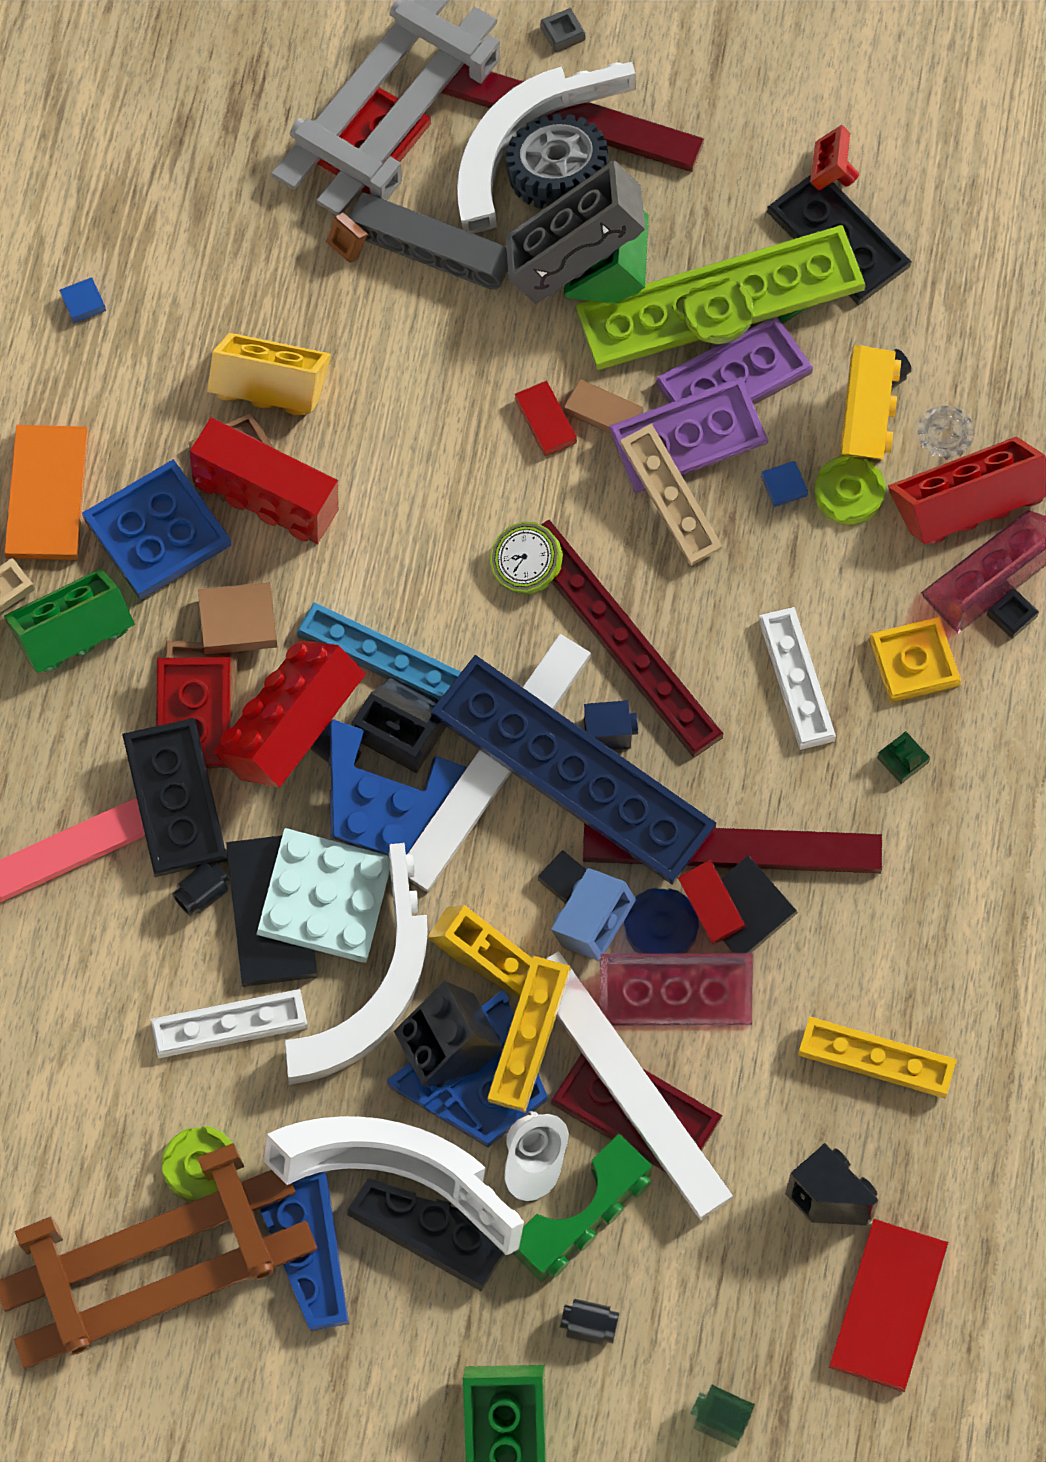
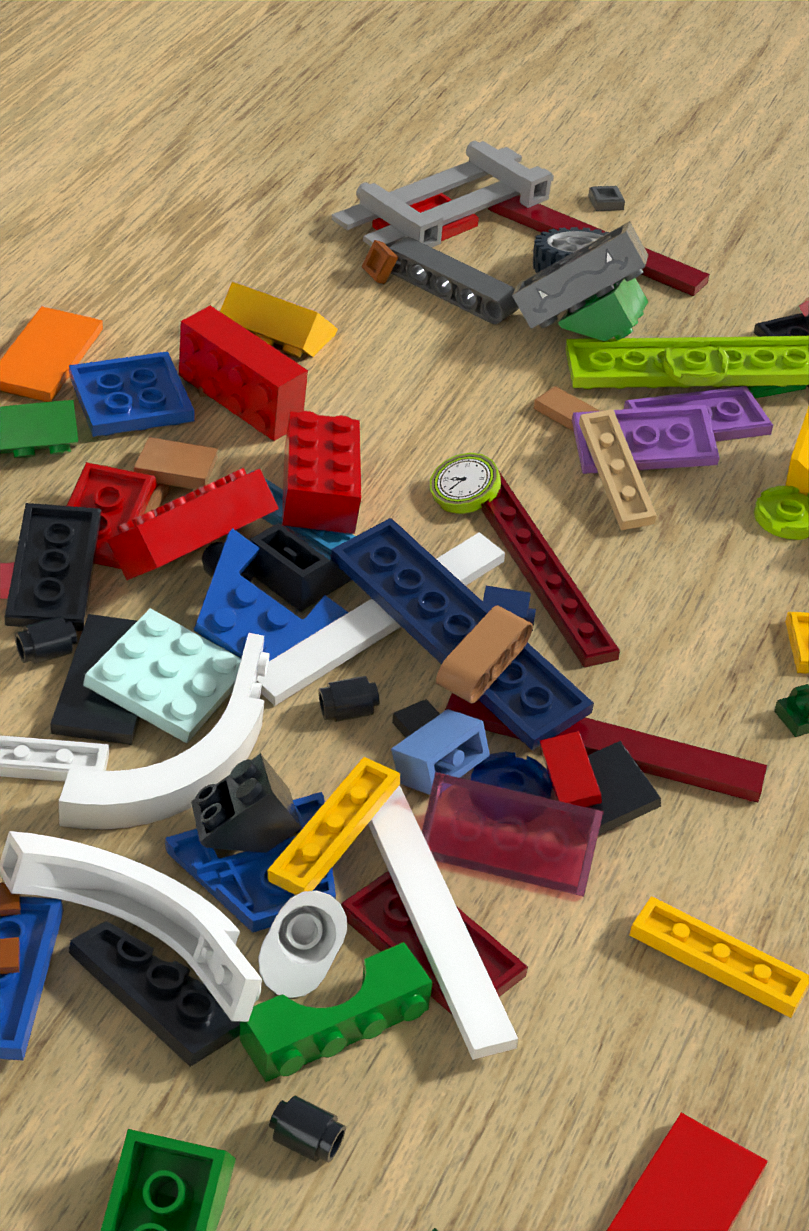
camera: 10 degrees right, 25 degrees down
(82, 300) = (138, 254): blue tile -> none
(386, 595) = (322, 472): none -> red brick
(481, 948) = (307, 747): yellow slope -> none
(494, 872) = (348, 699): none -> black brick
(522, 104) = (517, 235): white arch -> none
(545, 418) = (515, 406): red tile -> none
(608, 805) = (484, 654): none -> medium nougat beam
(784, 483) = (727, 494): blue tile -> none
(797, 678) = (706, 631): white tile -> none
(830, 1191) = (637, 1060): black slope -> none

